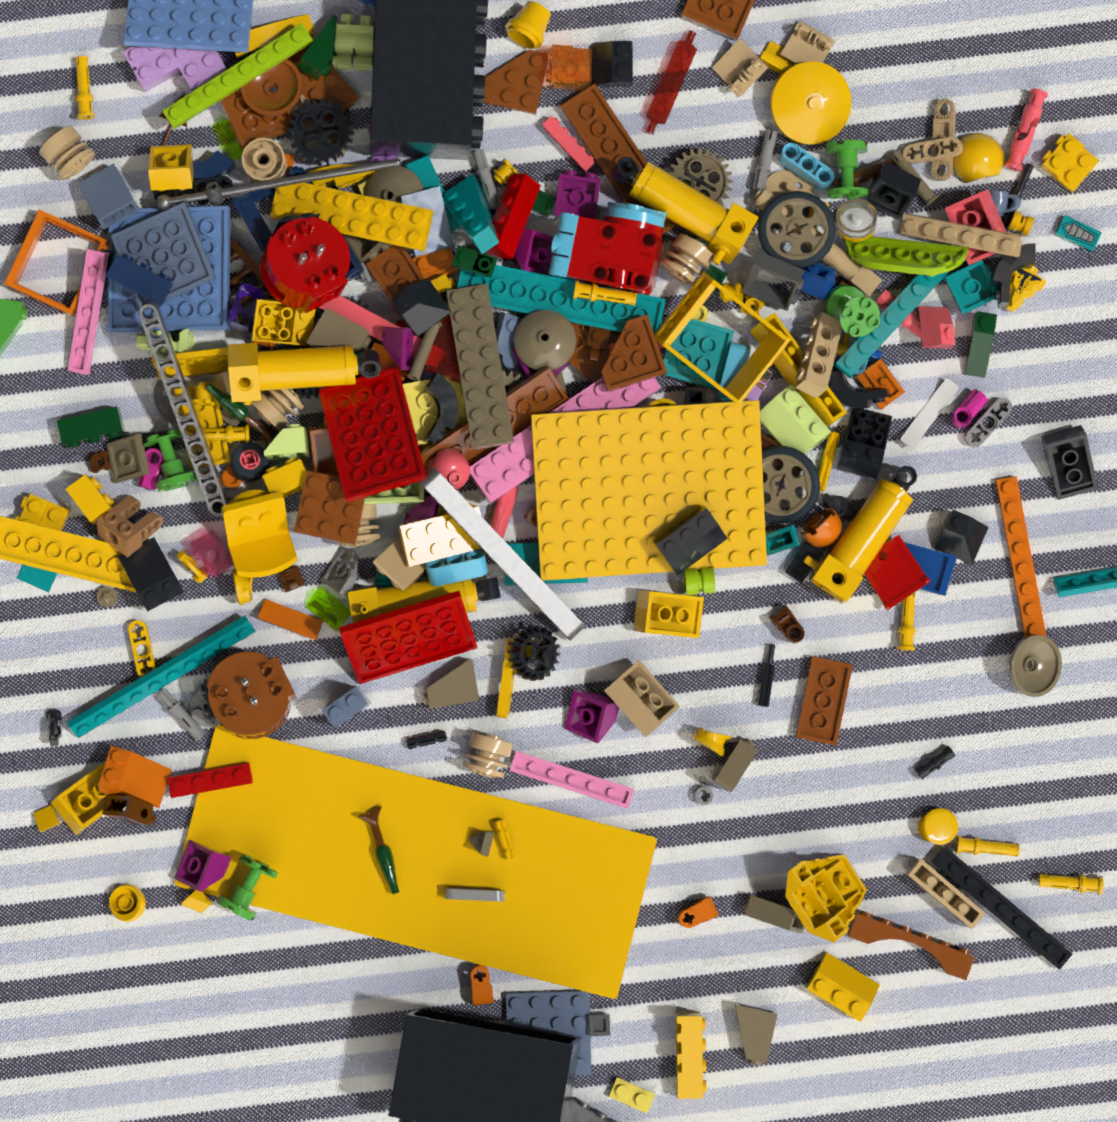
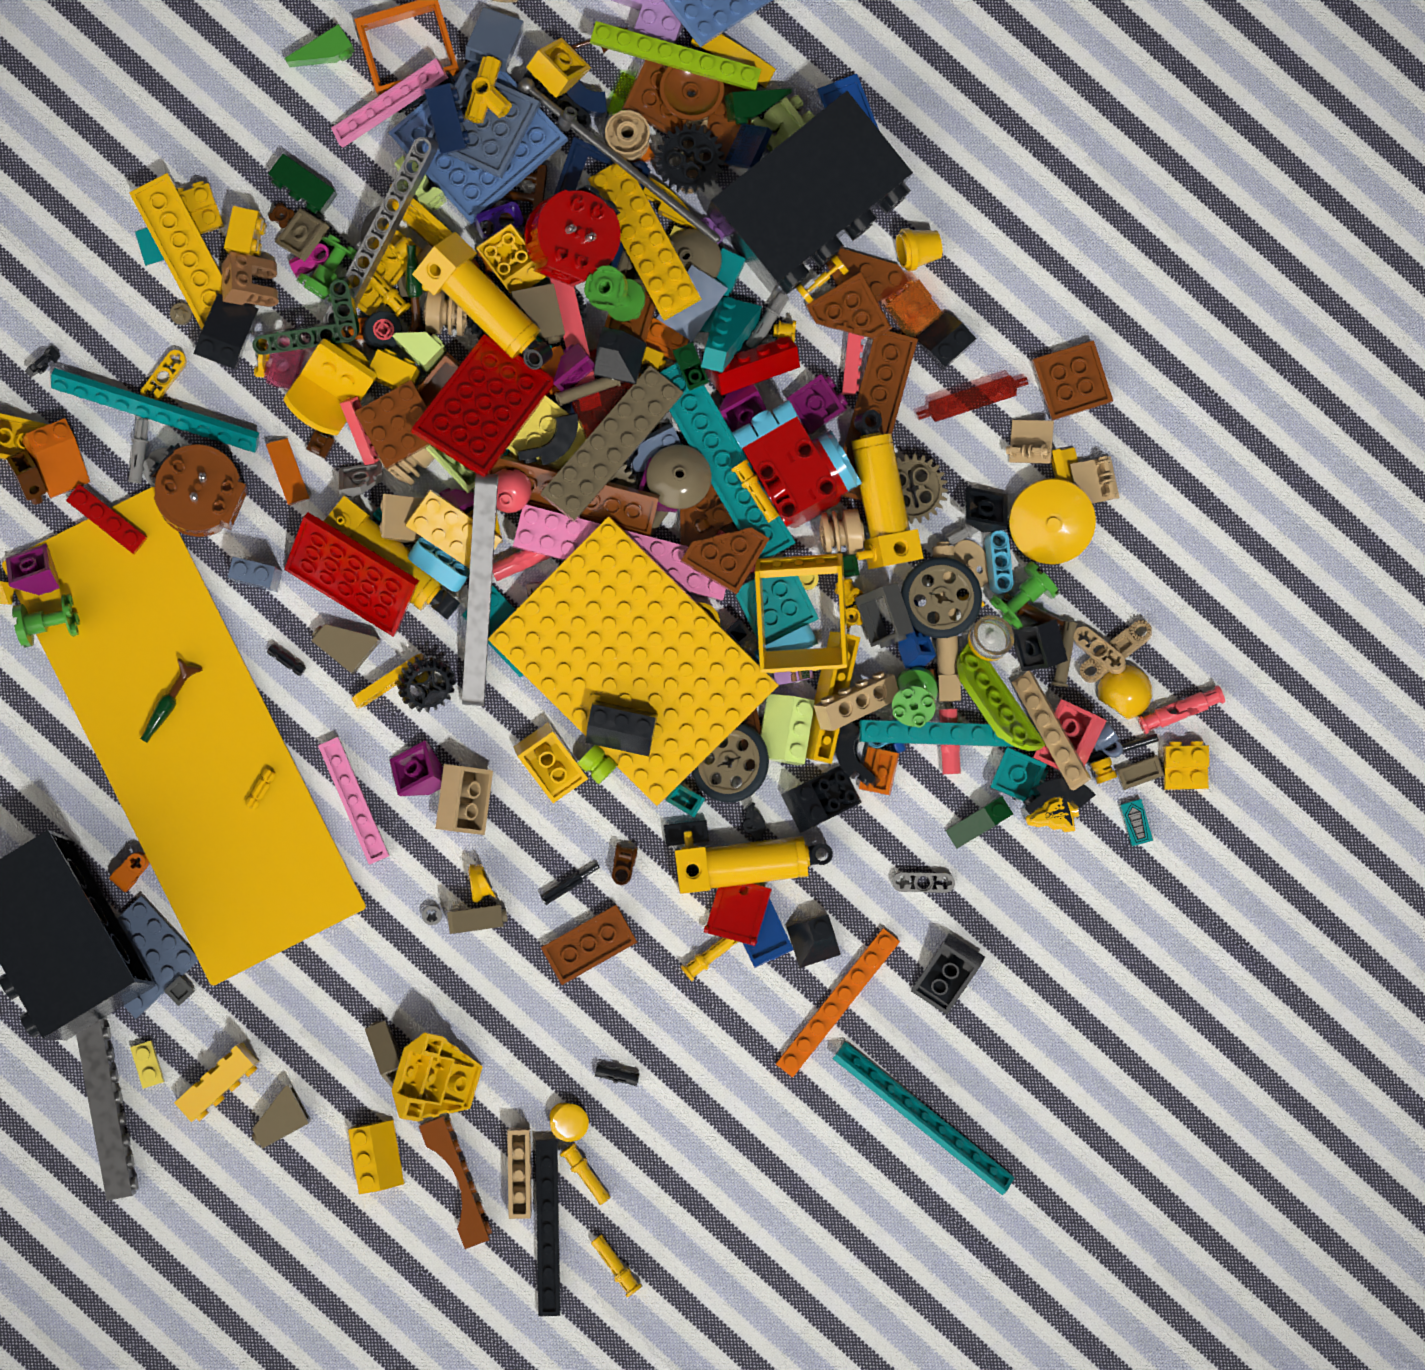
camera: 40 degrees right, 0 degrees up
(152, 234) = (491, 97): none -> yellow piece
(208, 508) = (315, 331): none -> dark green beam
(243, 588) = (277, 413): yellow piece -> none
(316, 544) = (362, 441): none -> coral piece
(328, 609) = (322, 493): clear neon green slope -> none
(349, 81) = (748, 146): none -> dark blue tile
(374, 269) = (614, 293): none -> bright green piece
(474, 894) = (196, 803): light grey beam -> none
(482, 842) = (243, 774): dark tan tile -> none
(488, 752) = (317, 716): tan wheel -> none
(491, 112) = (822, 279): none -> yellow wheel
(531, 111) = (851, 309): none -> dark orange plate
(544, 203) = (788, 382): dark green tile -> none
(701, 910) = (338, 993): orange piece -> none
(761, 142) = (986, 509): none -> black slope
(823, 529) = (723, 825): orange cylinder -> none
(827, 459) = (782, 781): yellow axle -> none
(842, 347) = (879, 715): yellow hand -> none
(929, 413) = (889, 829): white sticker -> none
(936, 327) = (961, 774): coral slope -> none
(969, 408) = (921, 857): dark pink piece -> none
(1042, 669) = (767, 1094): dark tan dish -> none
(1045, 199) = (1140, 772): none -> dark tan tile

